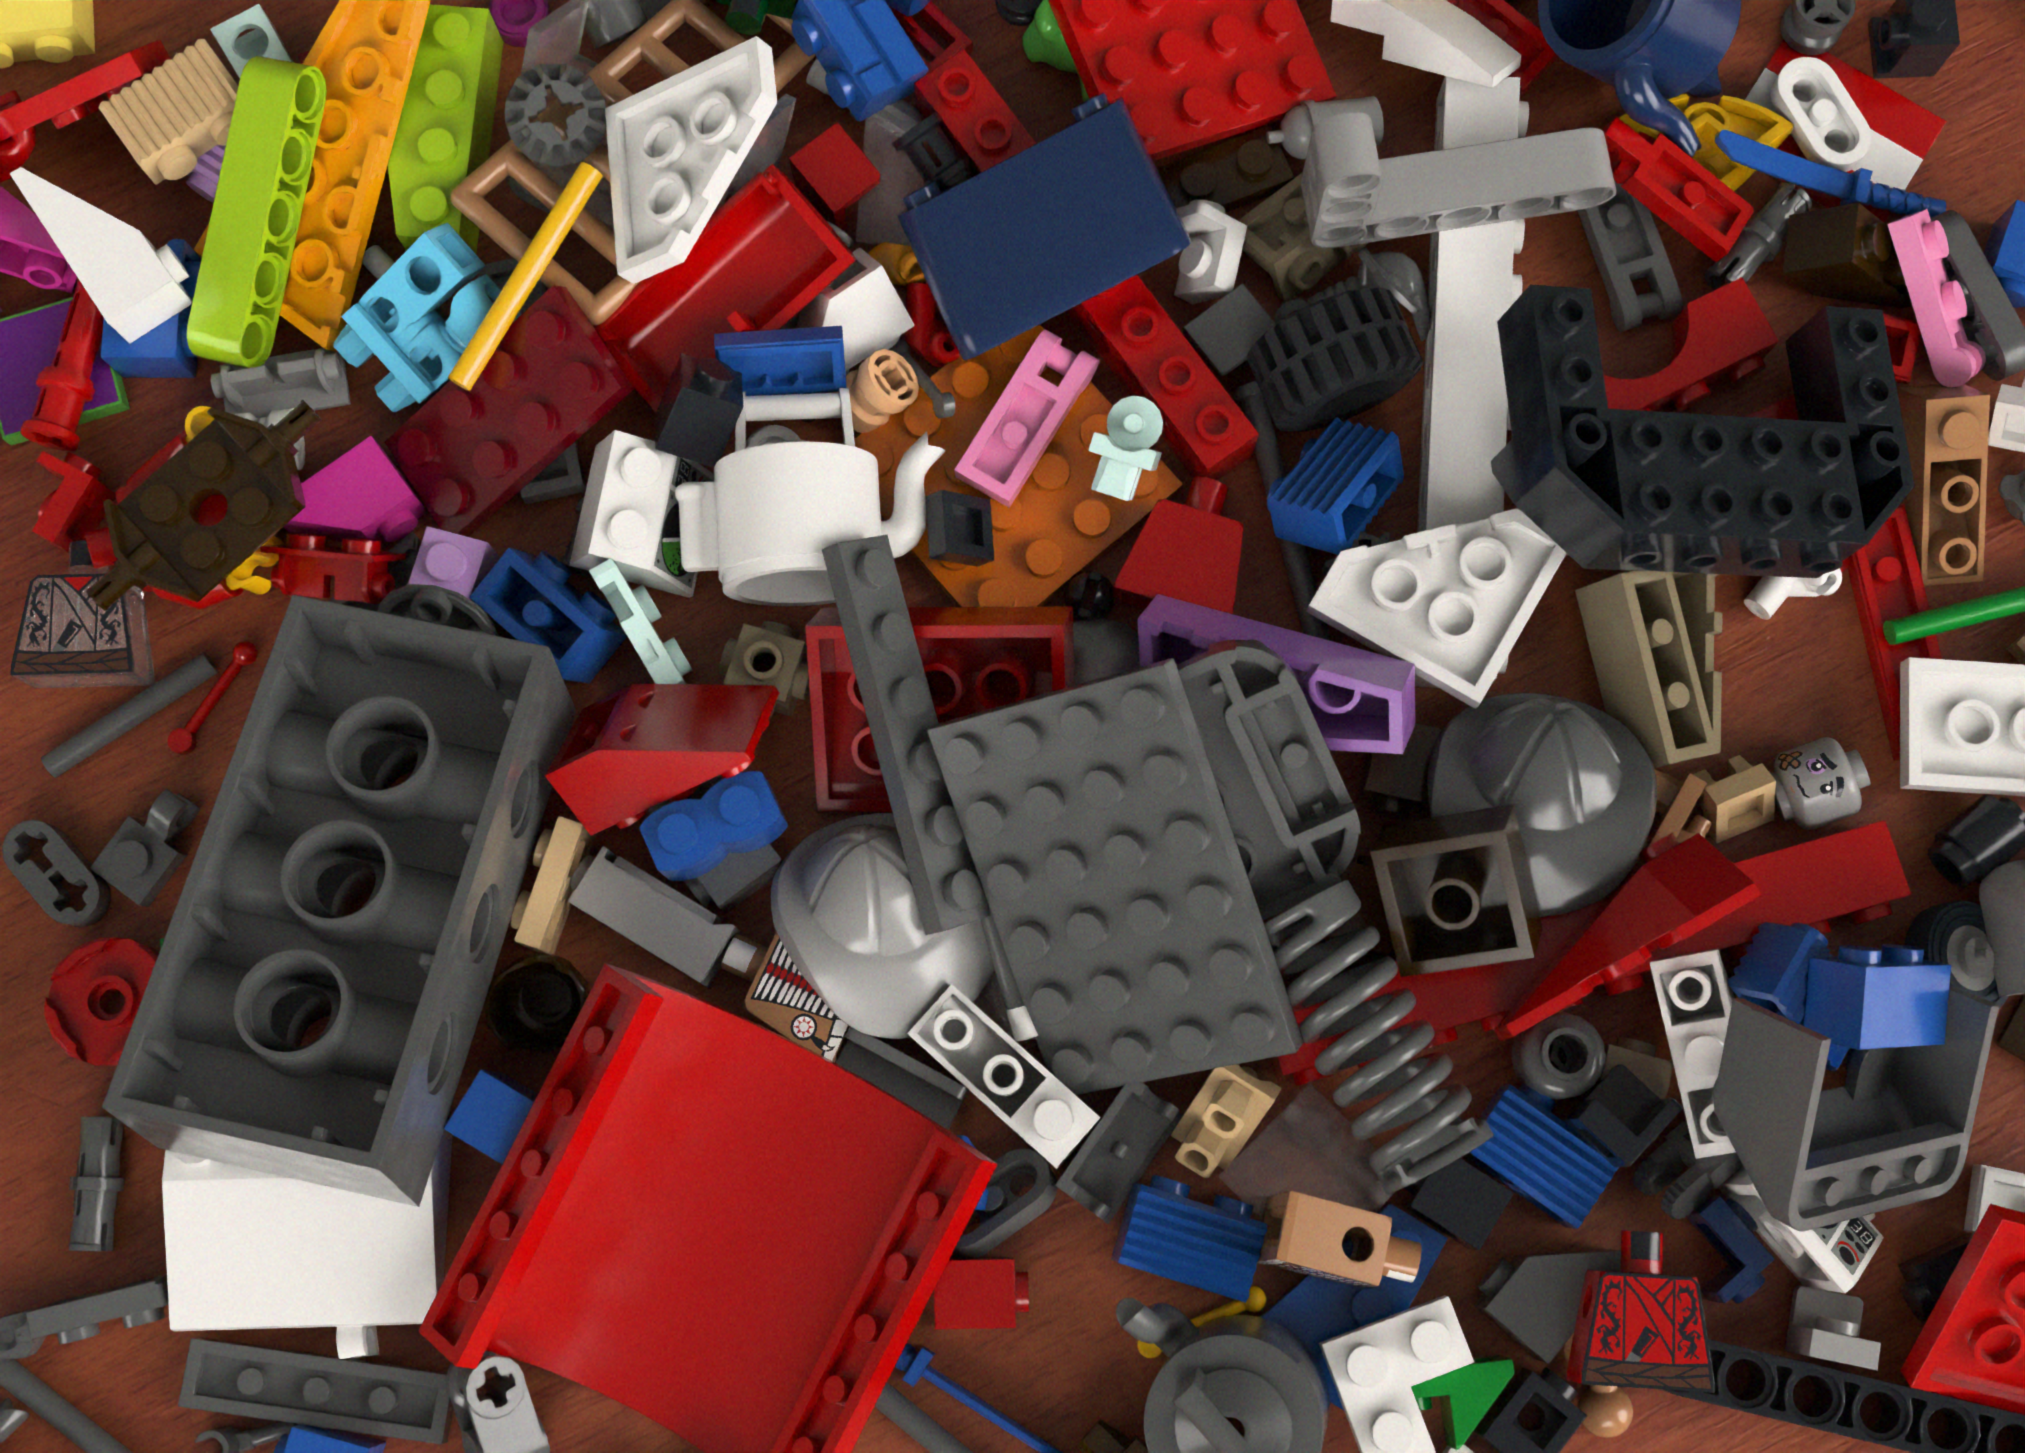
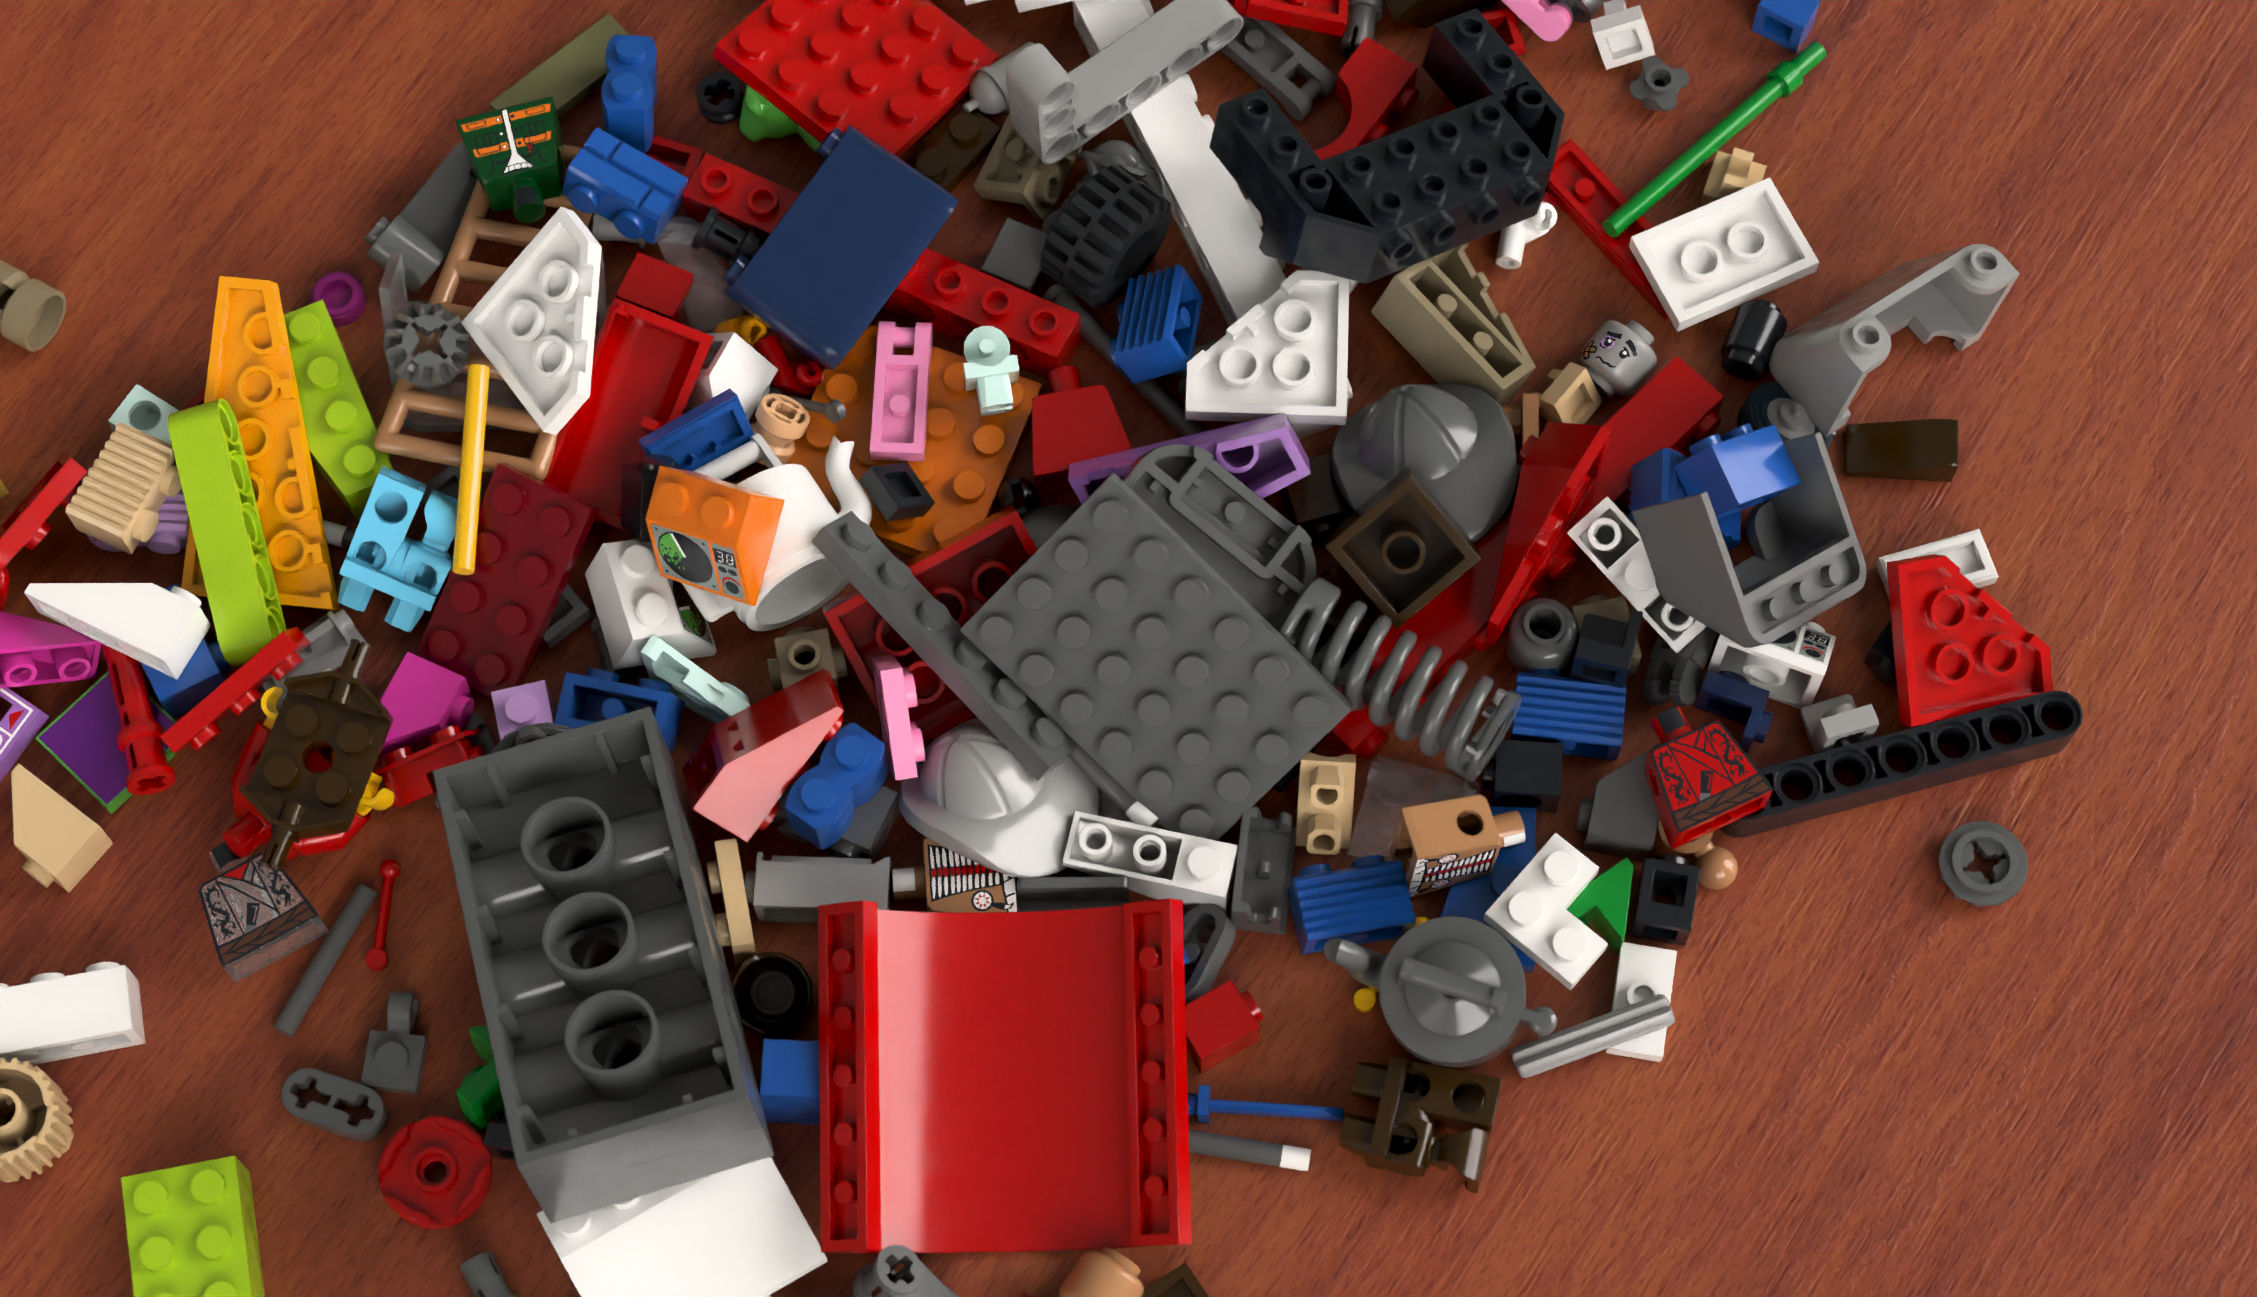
camera: 30 degrees left, 10 degrees down
(75, 504) = (196, 831): red bracket -> none
(176, 390) = (237, 692): none -> red plate
(725, 481) = (712, 533): none -> orange slope
(819, 782) = (901, 736): none -> bright pink plate
(1213, 257) = (976, 217): white bracket -> none
(1949, 468) = (1592, 106): medium nougat slope -> none

